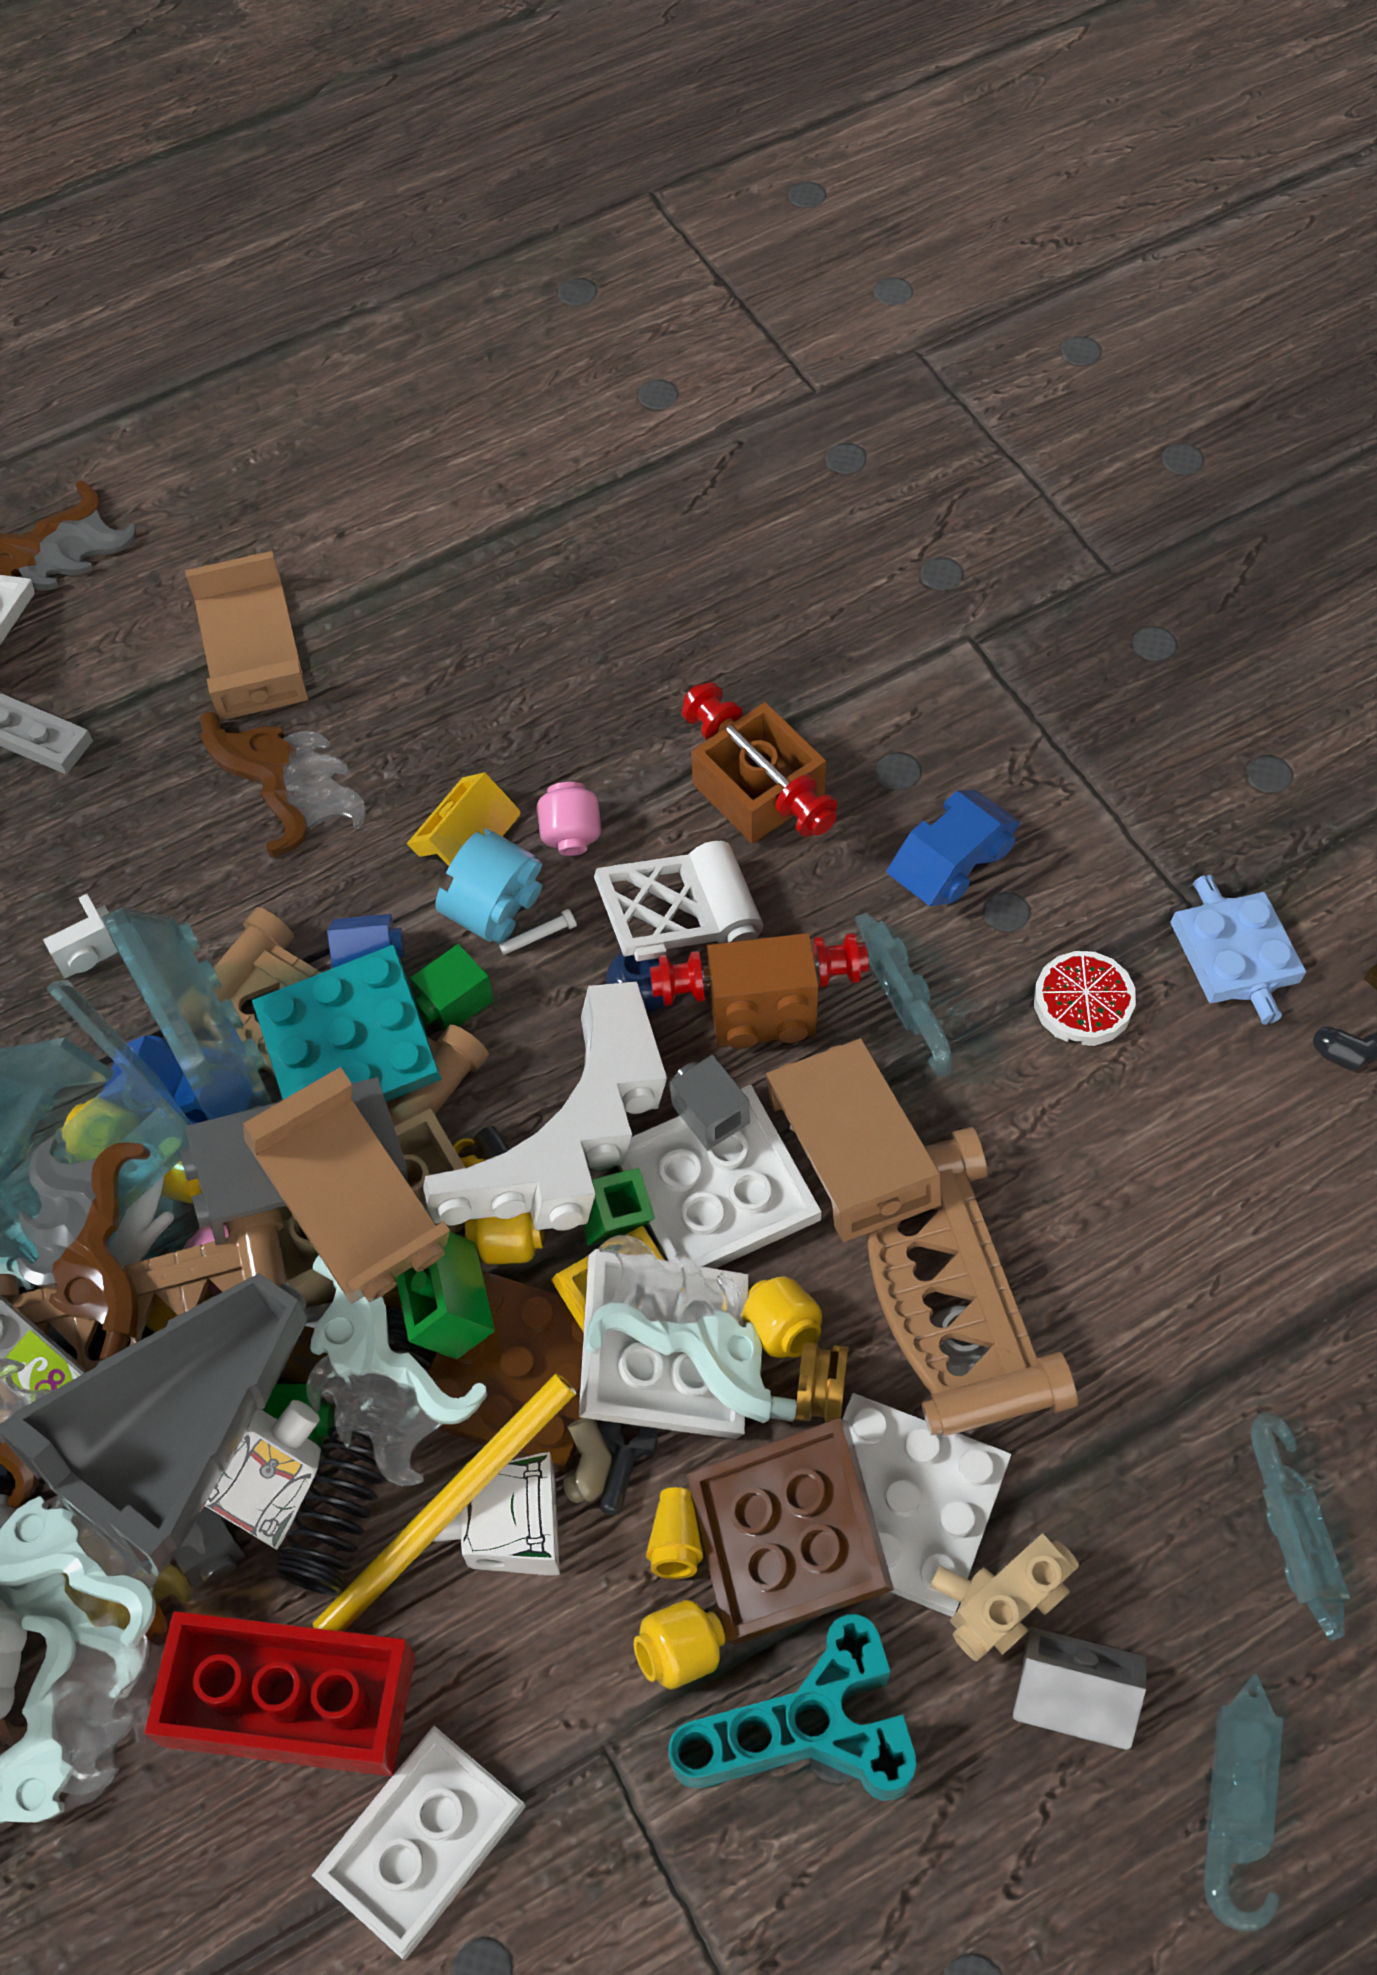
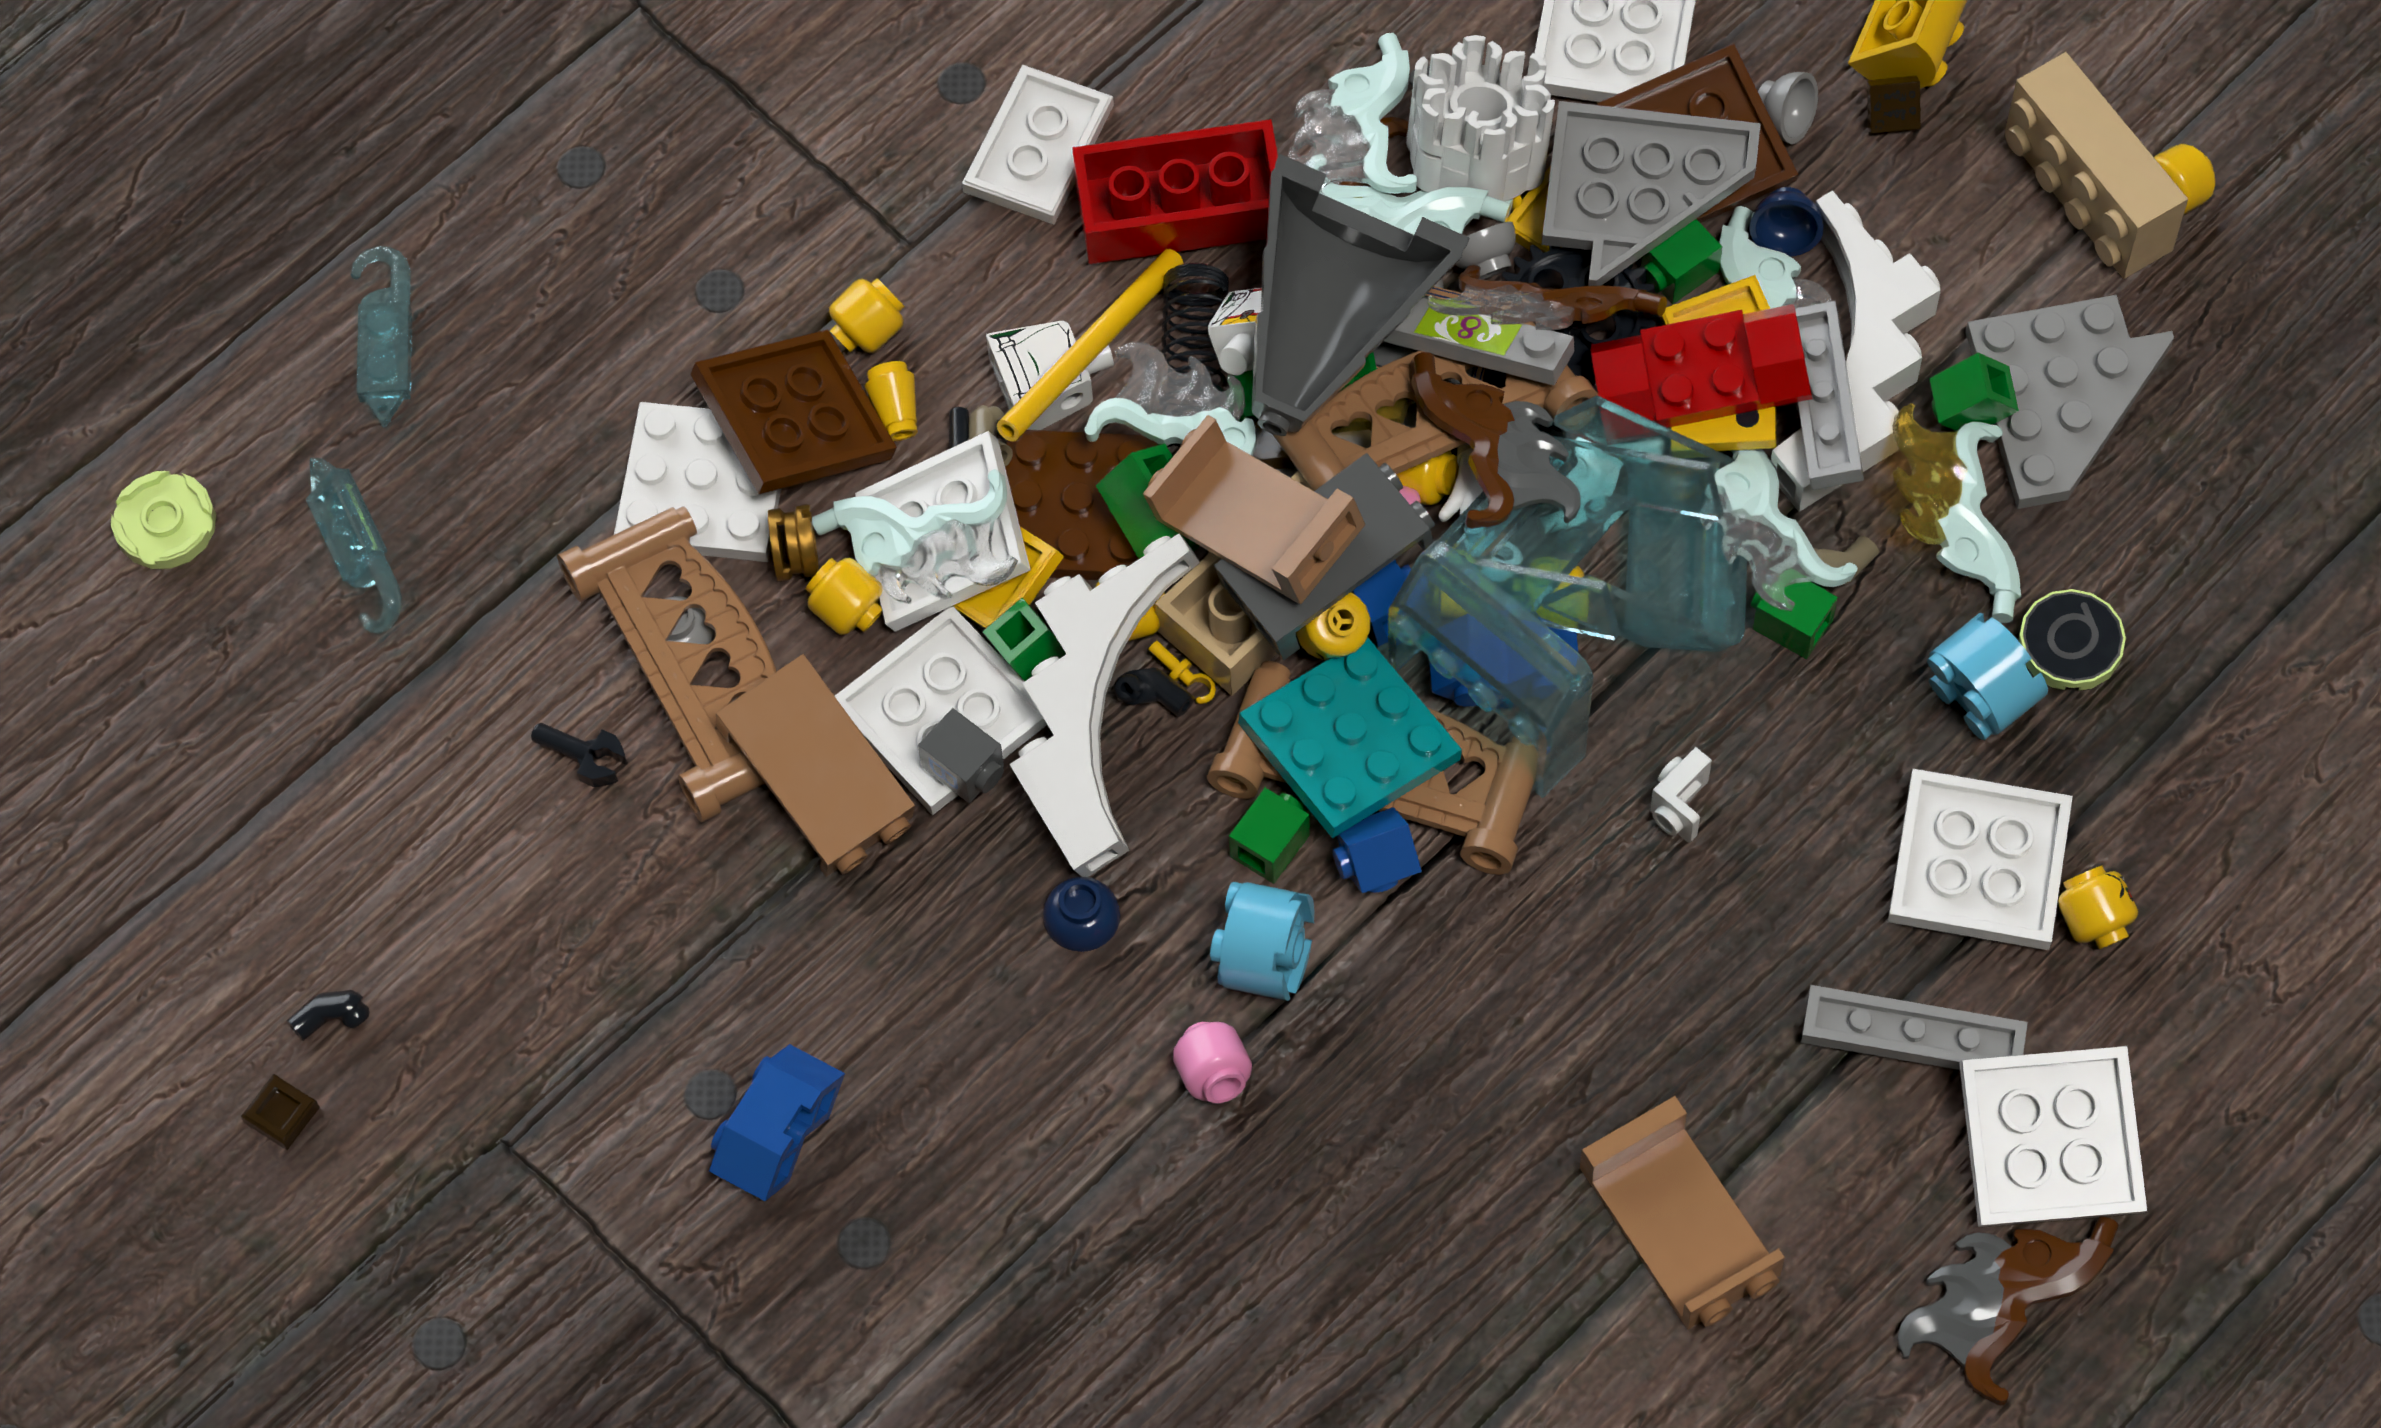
camera: 165 degrees right, 5 degrees up
(293, 776) = (1550, 1056): piece -> none
(468, 808) = (1332, 1034): yellow panel -> none
(539, 932) = (1181, 956): white piece -> none
(715, 895) = (1019, 1005): white piece -> none
(756, 767) = (1011, 1154): dark orange brick -> none
(762, 985) = (943, 893): dark orange brick -> none
(842, 1746) = (714, 278): teal beam -> none
(904, 989) = (794, 945): clear light blue plate -> none
(997, 1604) = (594, 412): tan brick -> none
(1075, 1237) = (589, 772): none -> black bar
(1080, 1688) = (525, 379): panel -> none
(1084, 997) = (610, 1002): tile -> none
(1237, 948) = (456, 1098): light blue plate -> none

